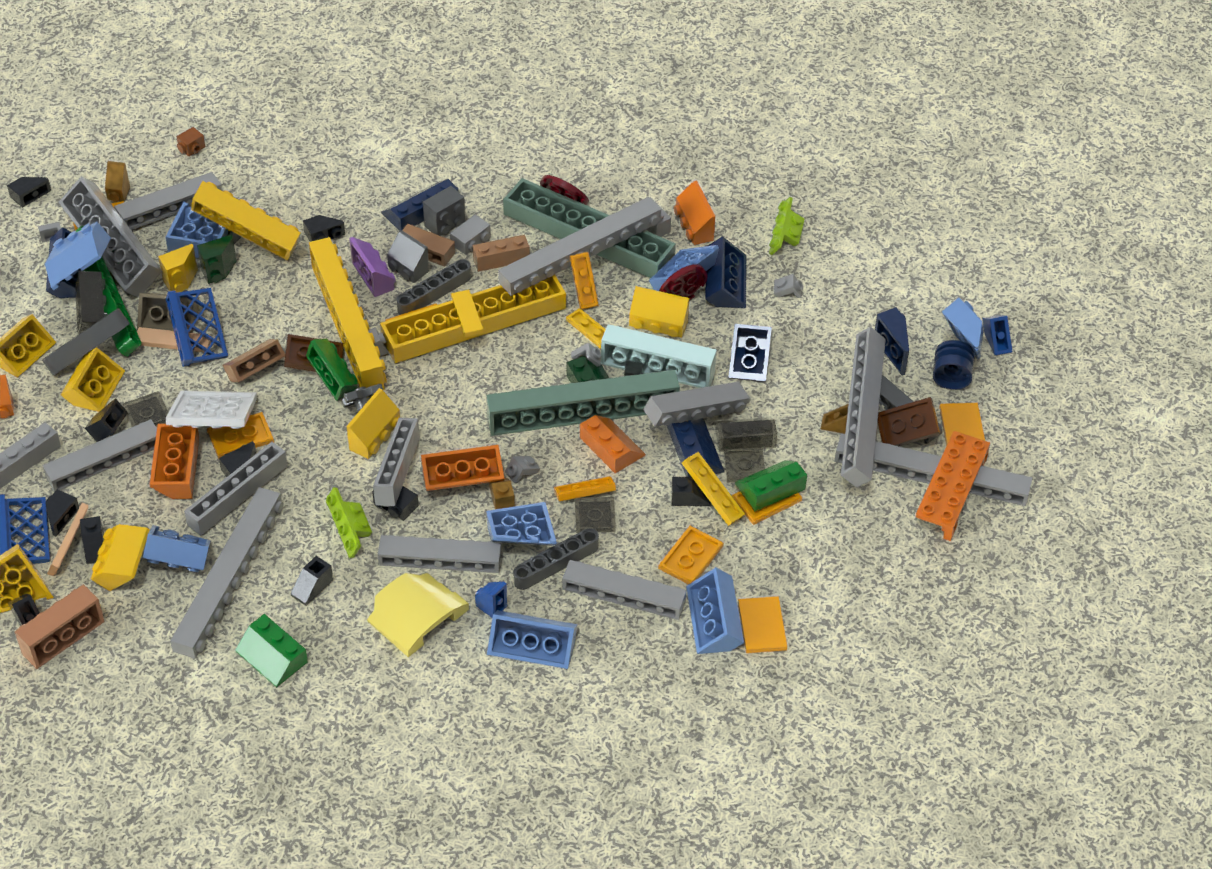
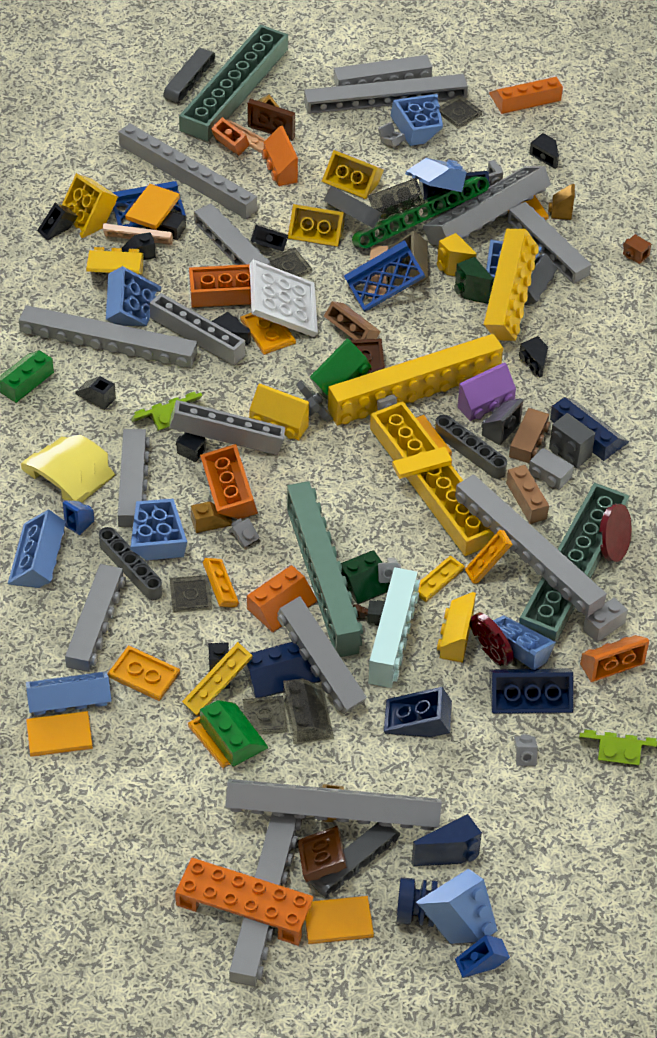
camera: 85 degrees right, 0 degrees up
(37, 515) = (152, 206): none -> light orange tile
(59, 626) = (39, 237): nougat brick -> none

